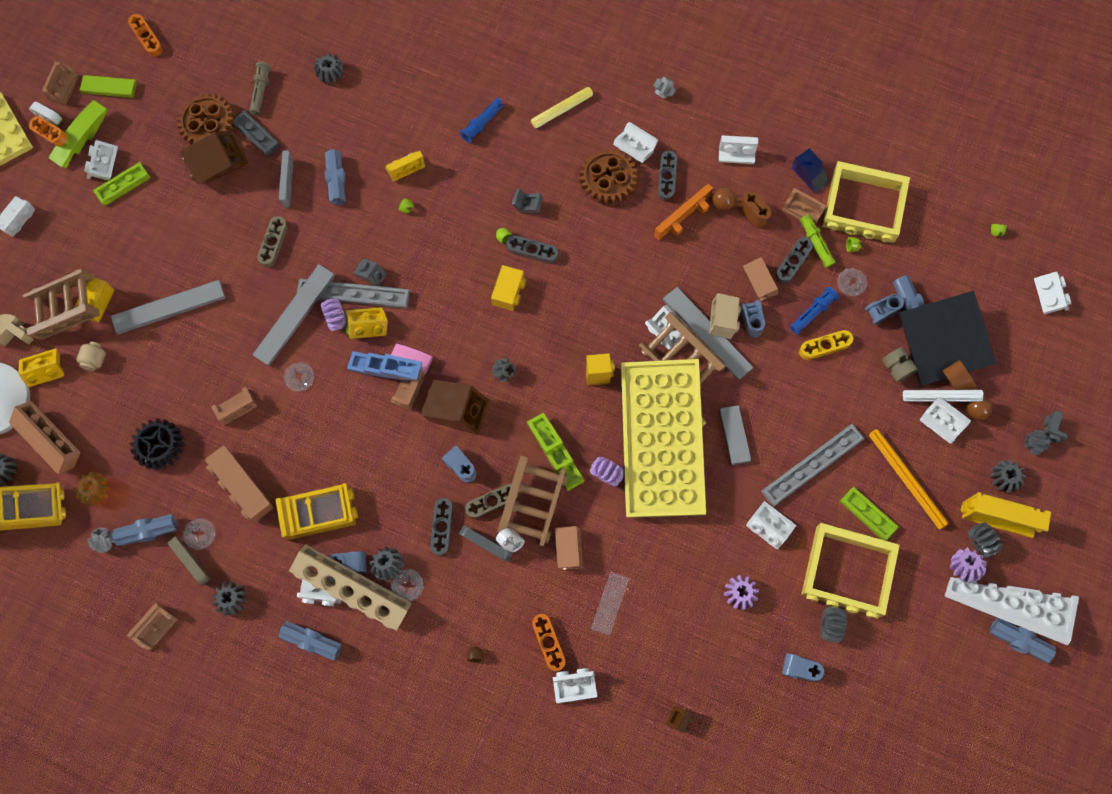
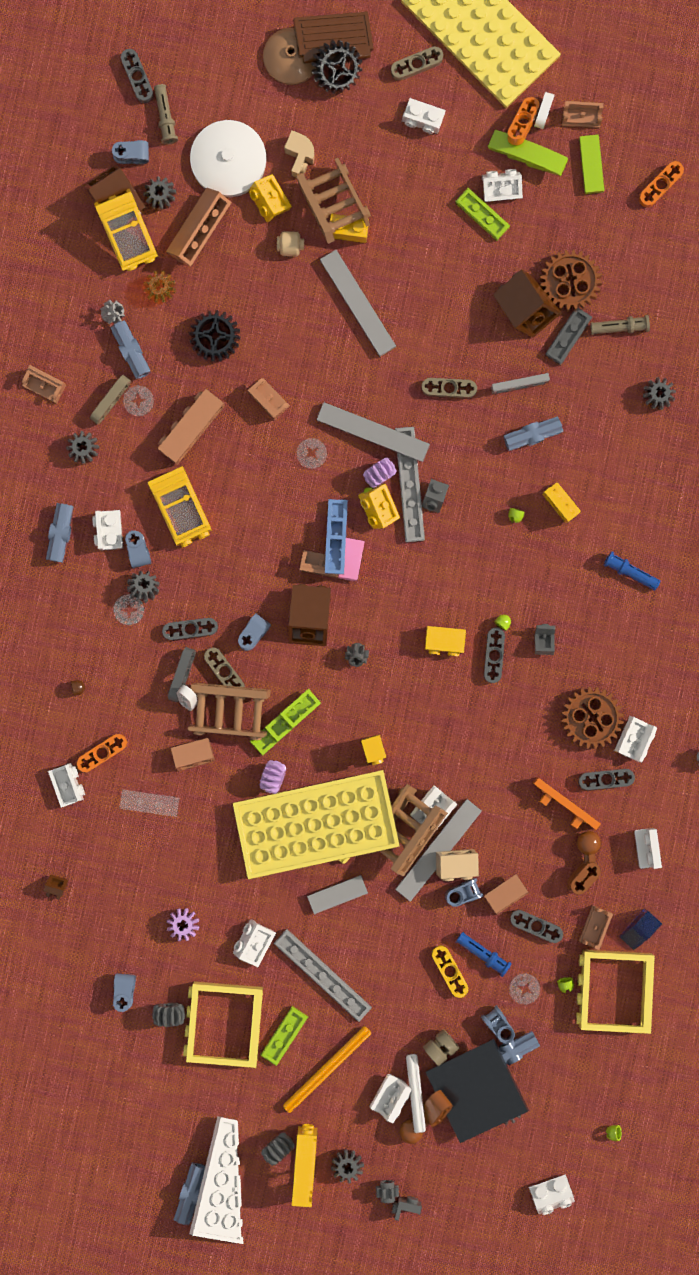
camera: 75 degrees right, 15 degrees up
(346, 577) = (112, 559): tan brick -> none
(562, 107) = (664, 652): light yellow axle -> none
(817, 240) = (563, 945): lime pin -> none
(968, 565) = (255, 1141): lavender gear -> none

